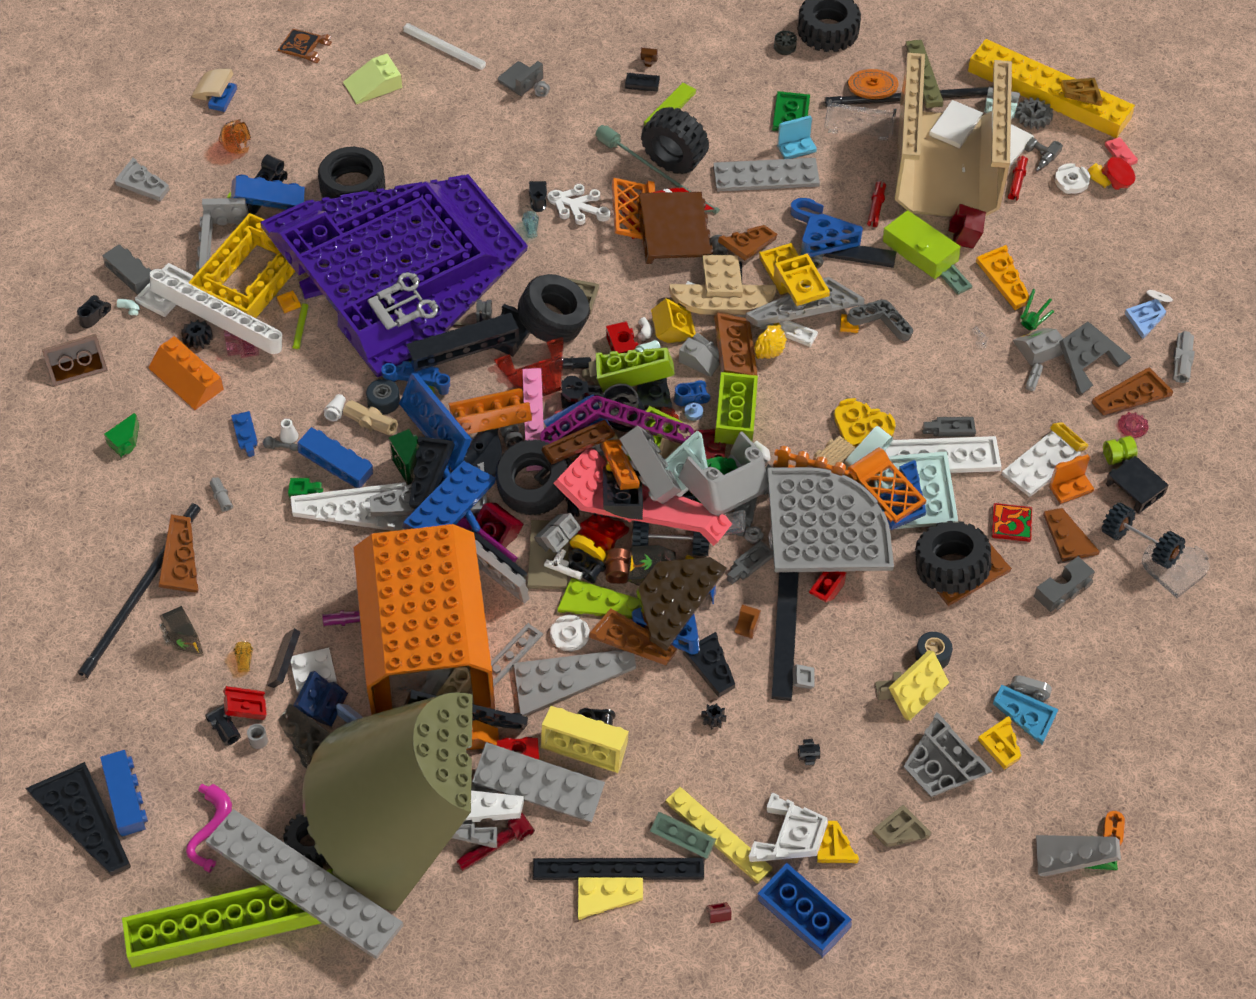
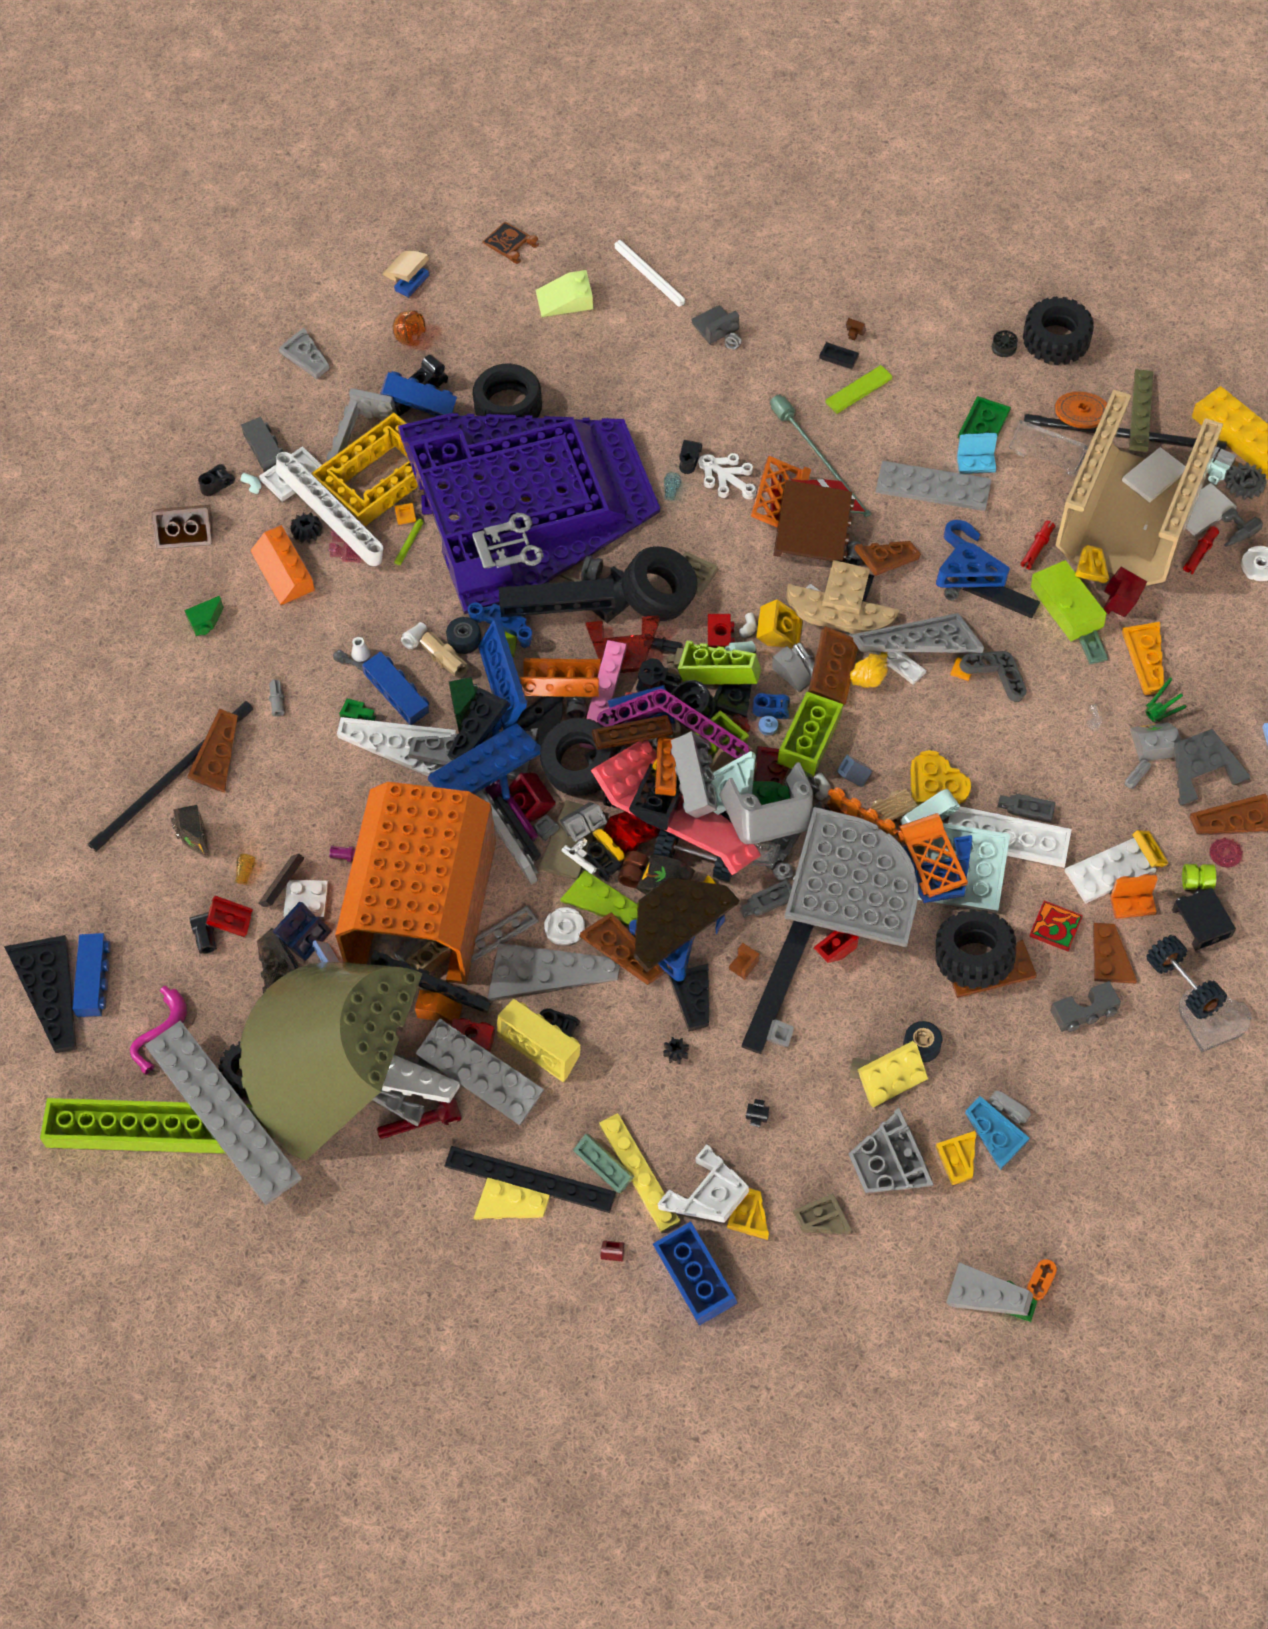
camera: 20 degrees right, 5 degrees up
(245, 432) = (320, 639): blue hinge -> none
(255, 730) = (227, 947): light grey beam -> none
(521, 548) = (545, 827): none -> dark grey tile
(675, 140) = (844, 429): black tyre -> none
(786, 432) = (854, 771): none -> sand blue panel
(794, 274) = (920, 603): yellow bracket -> none
(932, 210) = (1092, 565): none -> yellow wing

